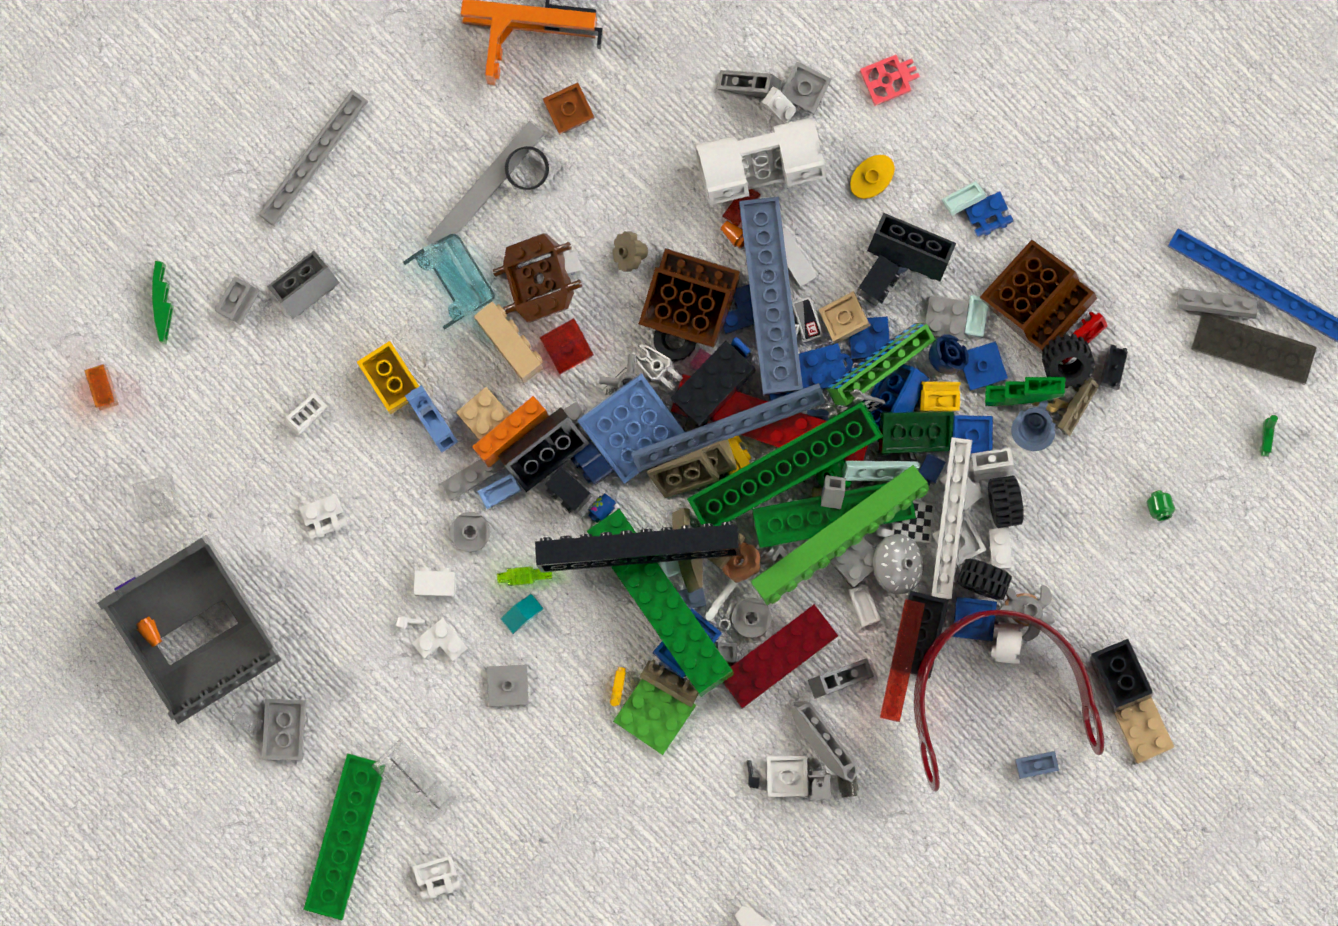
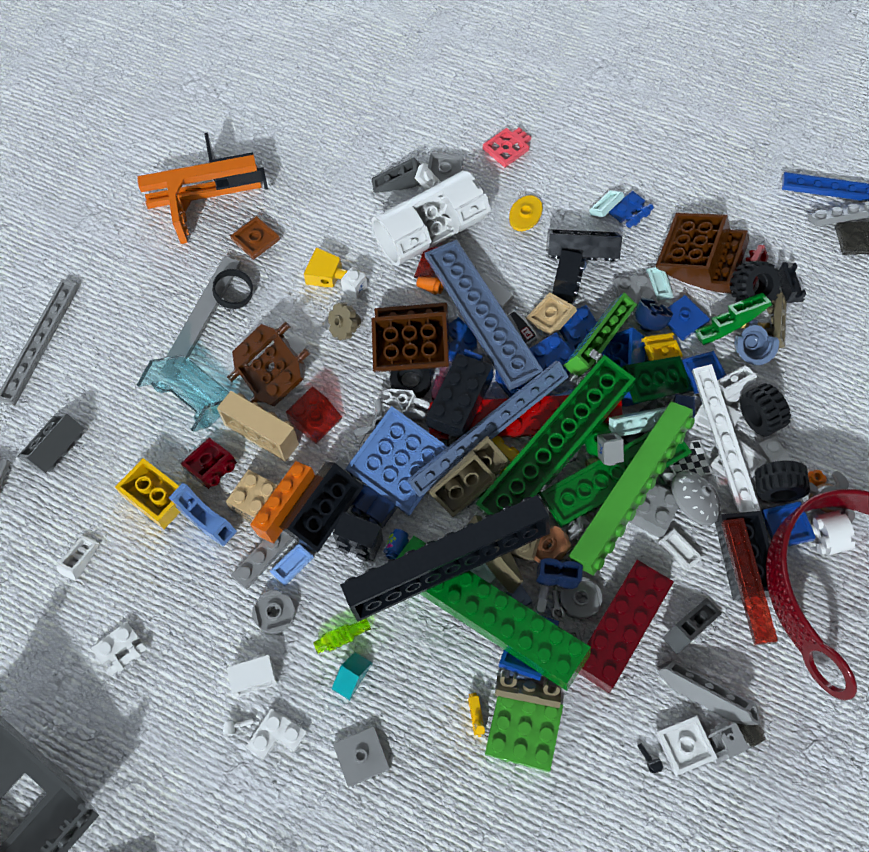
camera: 20 degrees left, 20 degrees down
(450, 362) = (209, 463): none -> dark red plate
(630, 177) = (323, 269): none -> yellow torso
(655, 206) = (354, 283): none -> white brick
(732, 590) = (565, 574): none -> dark blue brick
(1022, 580) = (817, 473): none -> orange plate

